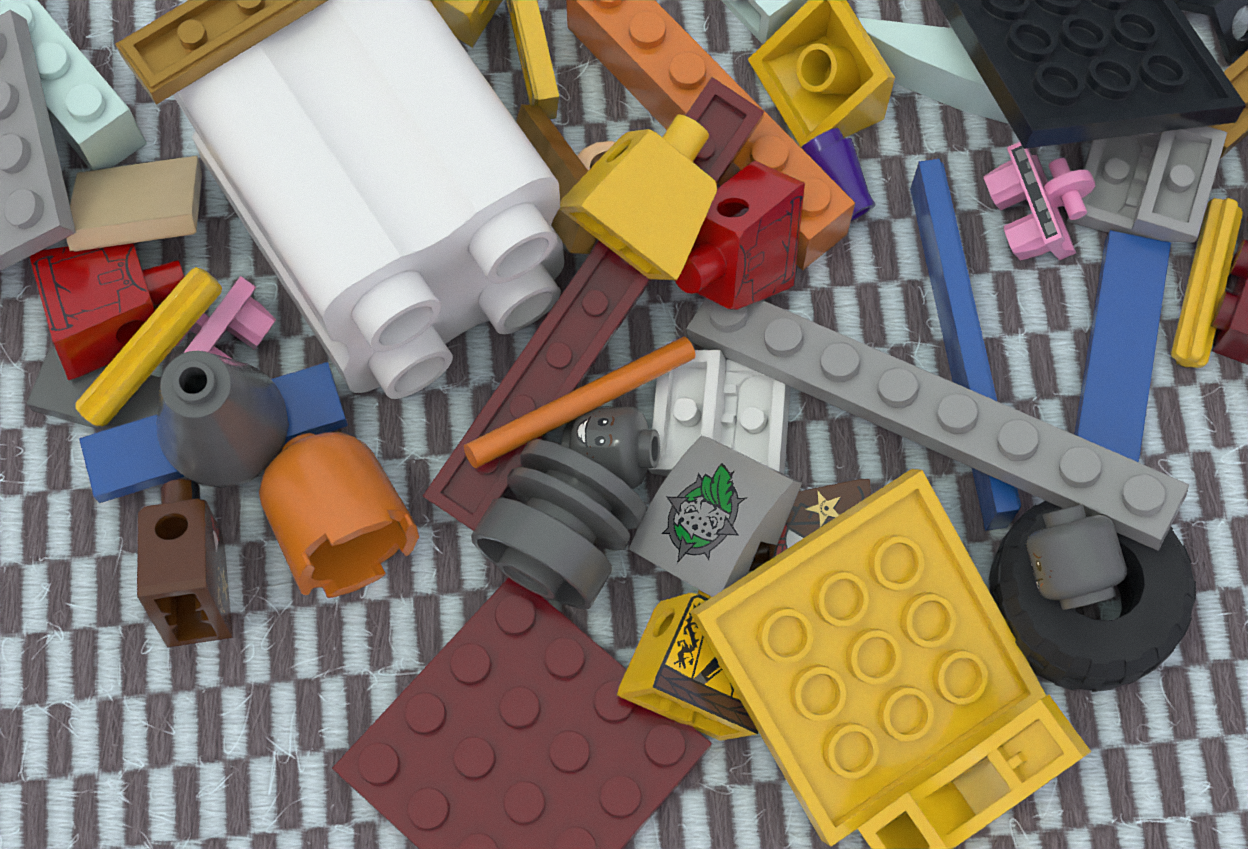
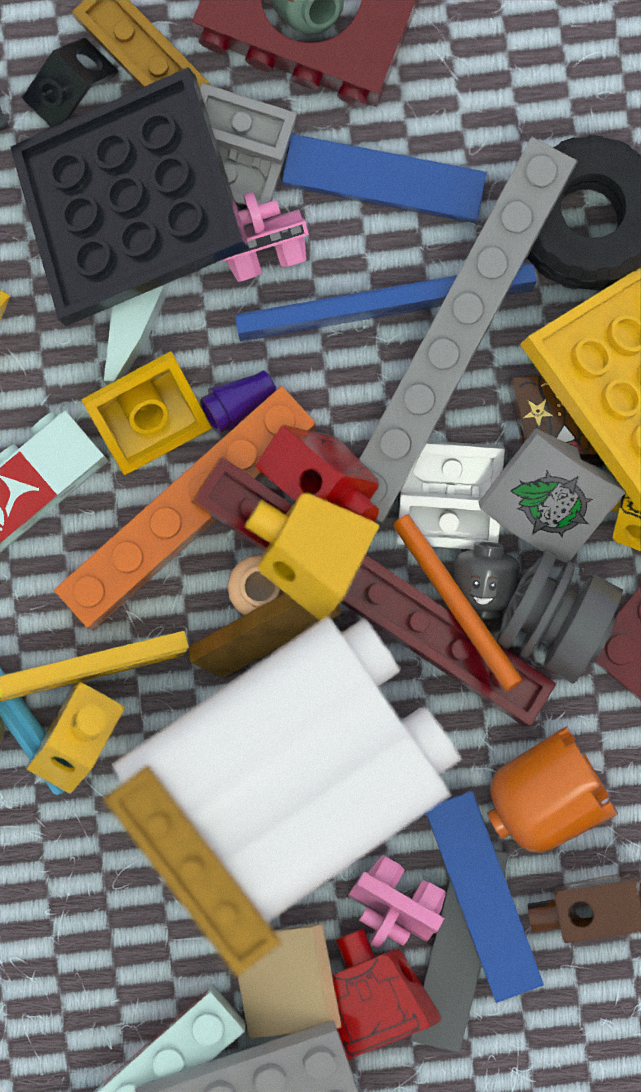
camera: 90 degrees left, 15 degrees up
(148, 347) = (422, 952): yellow axle -> none
(219, 419) = (466, 885): dark grey cone -> none
(1076, 557) = (590, 223): dark grey head -> none
(1206, 282) = (324, 107): yellow axle -> none

